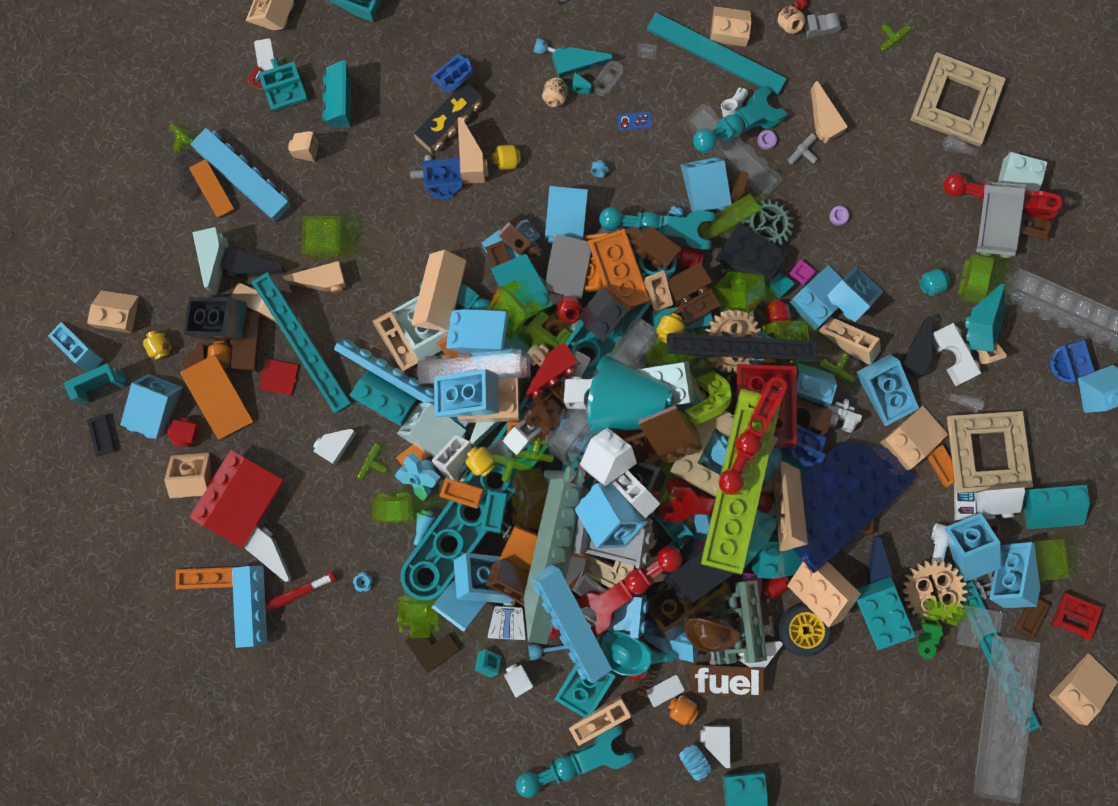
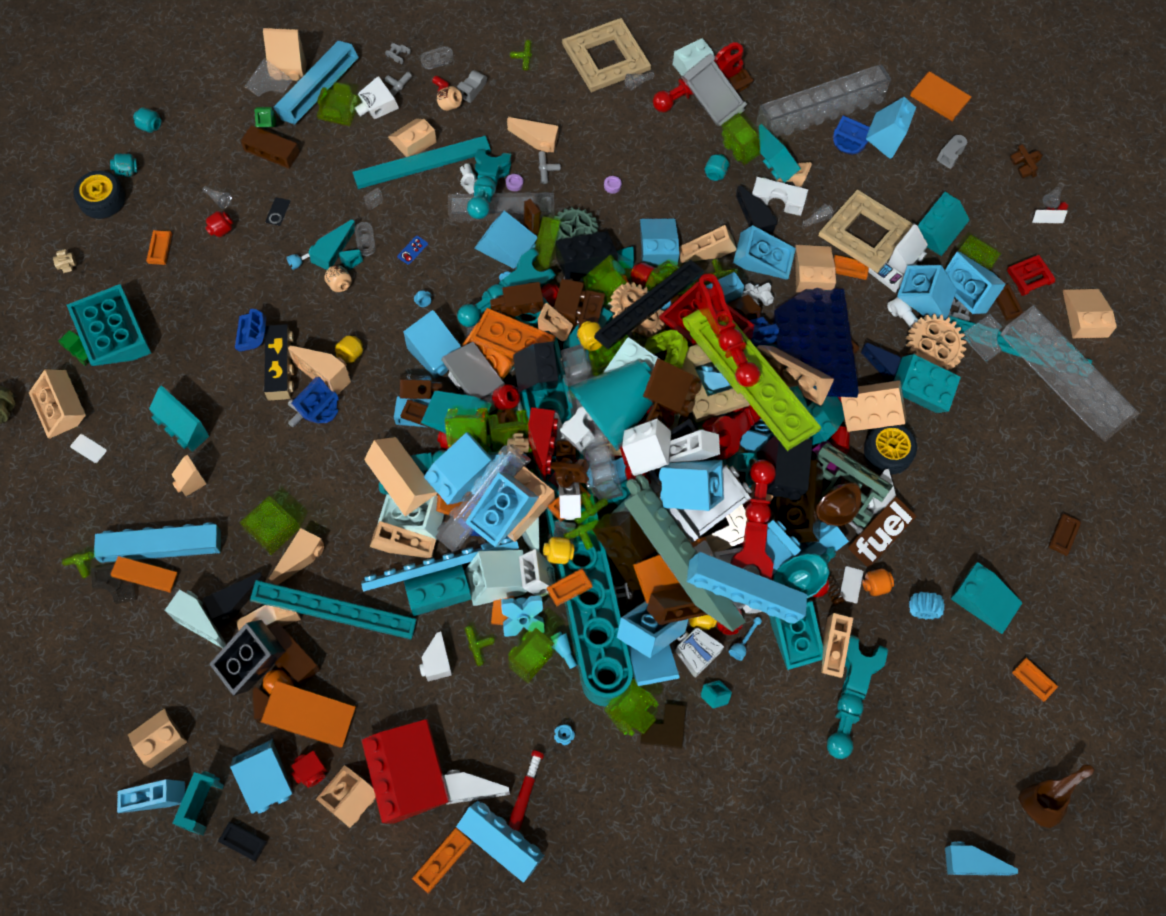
camera: 45 degrees left, 15 degrees down
(157, 345) = (218, 727): yellow head -> none
(254, 78) = (98, 467): sticker -> none
(278, 377) = (340, 656): red piece -> none
(282, 85) = (126, 453): teal plate -> none
(494, 511) = (606, 576): teal tile -> none
(518, 679) = (751, 679): white slope -> none
(717, 741) = (925, 579): white slope -> none
(802, 272) = (629, 238): dark pink tile -> none
(854, 294) = (679, 216): medium azure slope -> none
(926, 642) = (970, 379): green leg -> none
(951, 615) = (964, 344): clear neon green hinge -> none

